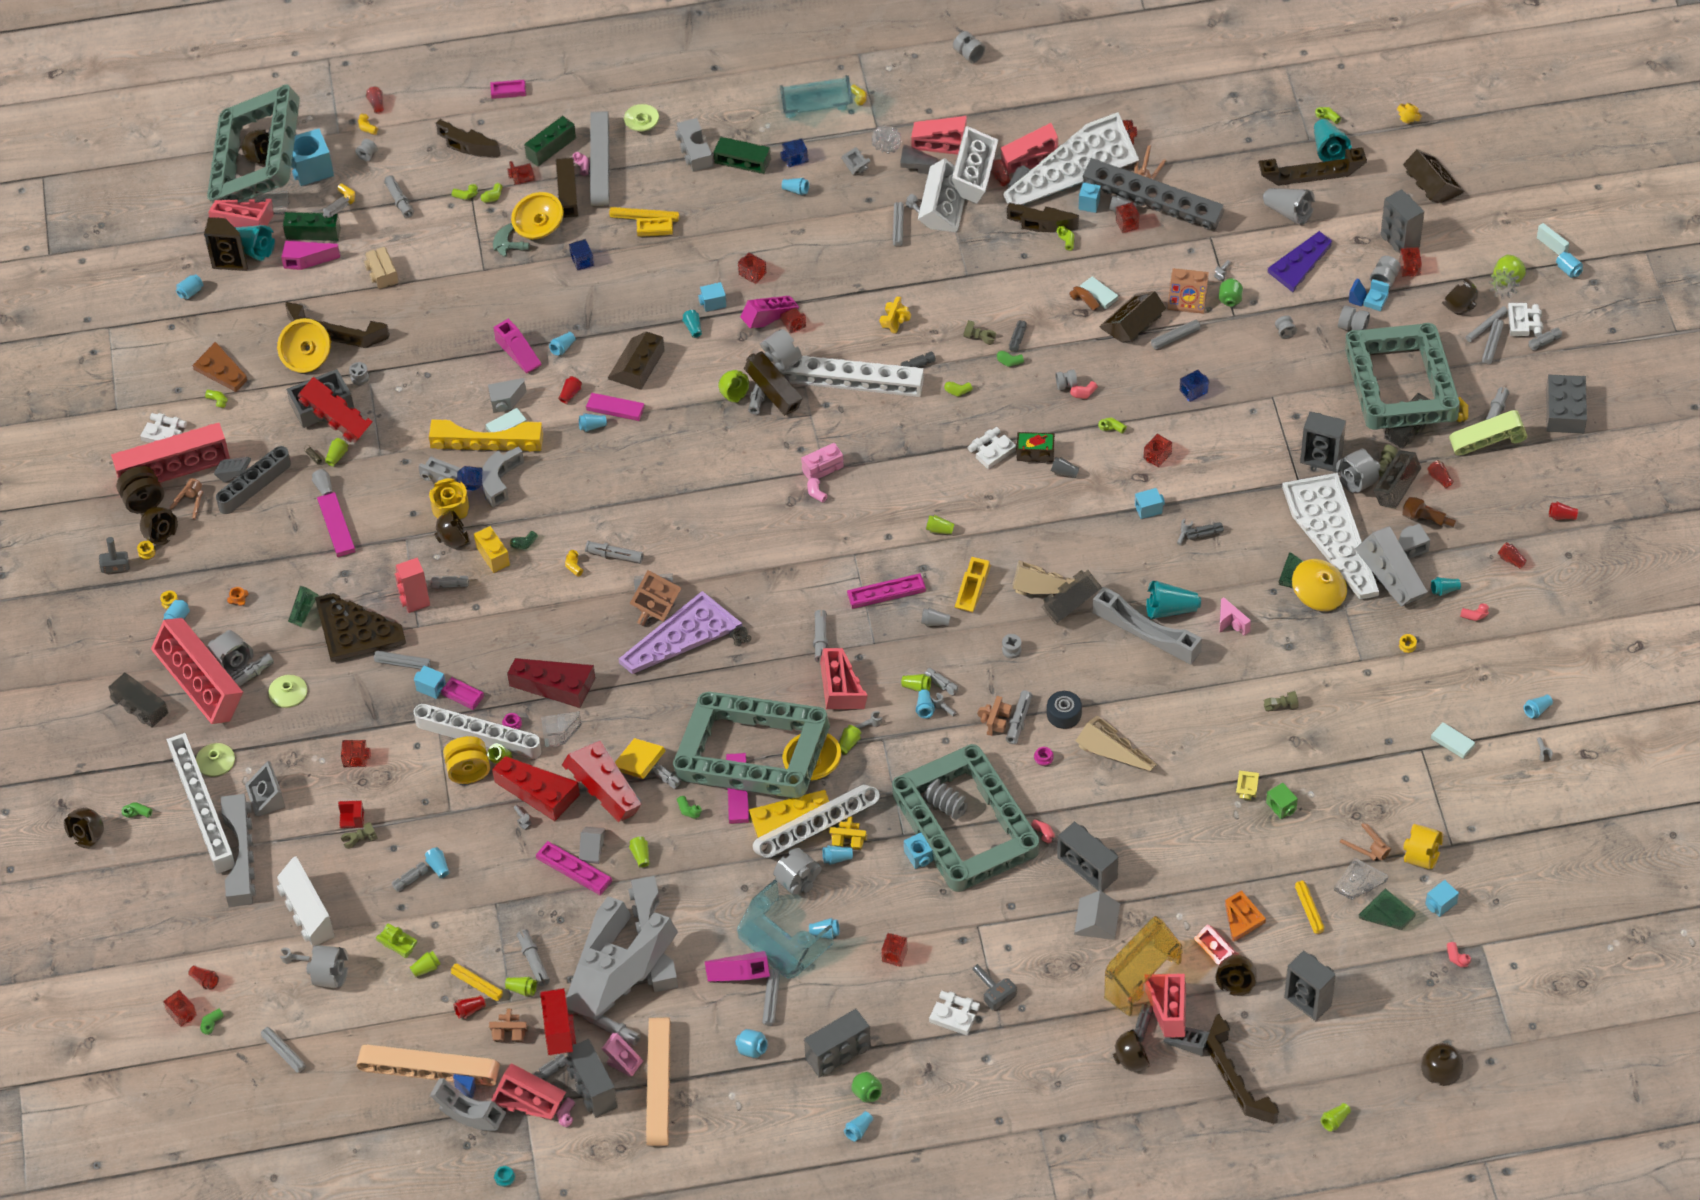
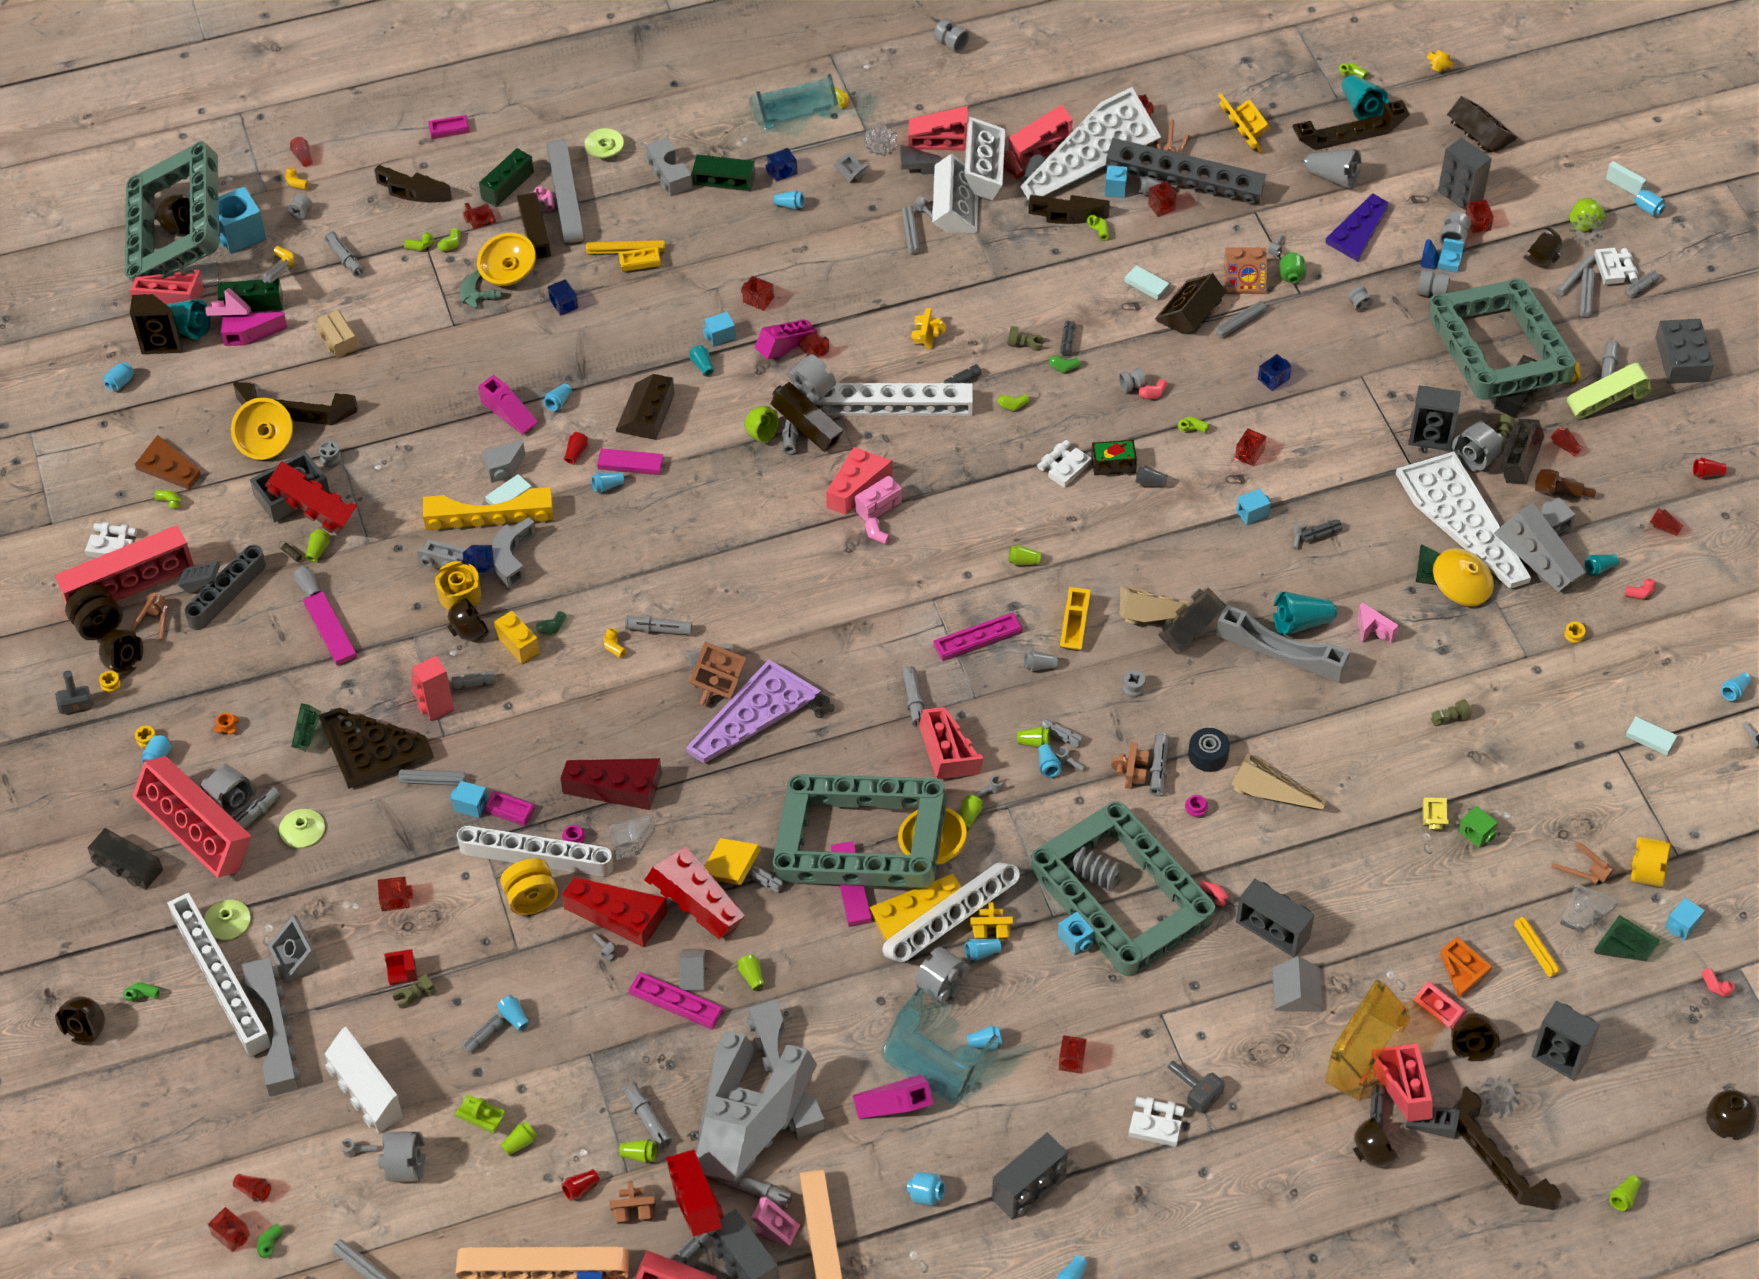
camera: 10 degrees left, 0 degrees up
(294, 234) = (233, 306): none -> bright pink slope
(476, 982) = (584, 1153): yellow axle -> none
(497, 753) = (564, 874): lime cone -> none
(686, 810) = (801, 917): bright green arm -> none
(771, 997) = (938, 1131): light grey axle -> none
(807, 438) = (856, 475): none -> coral wedge
(866, 1087) = (1073, 1225): bright green head -> none
(1085, 295) = (1134, 287): dark orange arm -> none
(1221, 153) = (1249, 120): none -> yellow bracket
(1247, 1026) = (1500, 1097): none -> clear gear

